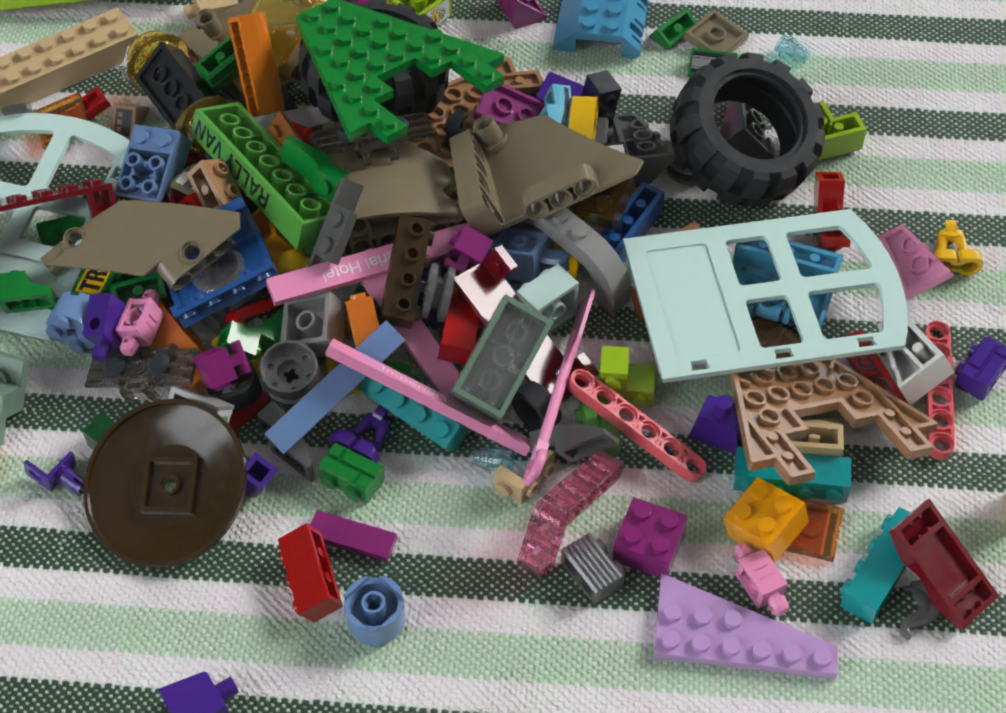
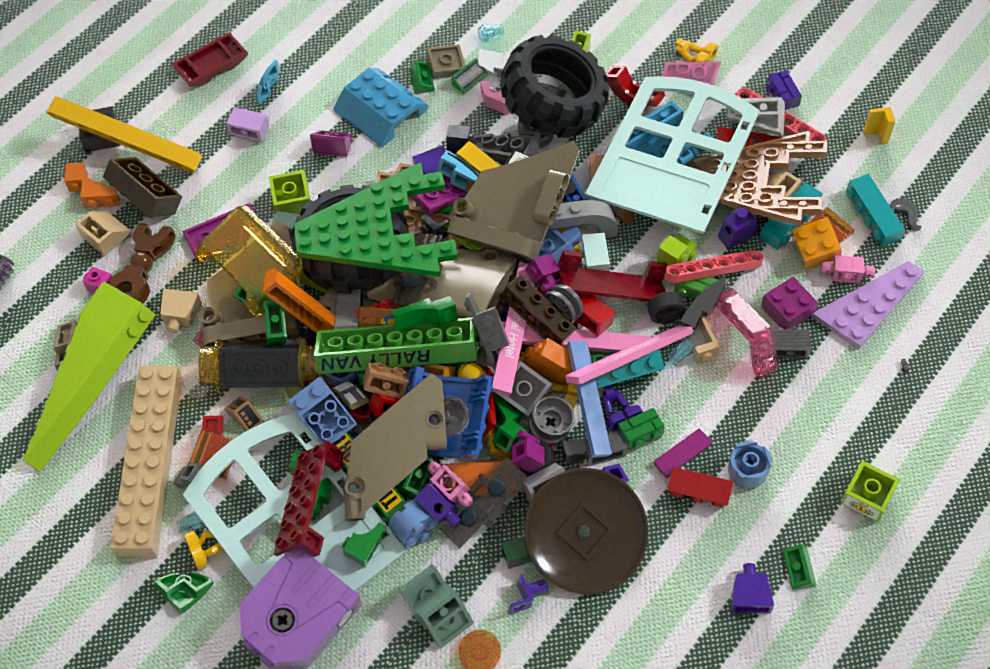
camera: 55 degrees left, 5 degrees up
(501, 358) = (635, 300): clear brick -> none
(540, 449) = (641, 265): bright pink piece -> none
(943, 565) = (897, 184): dark red slope -> none

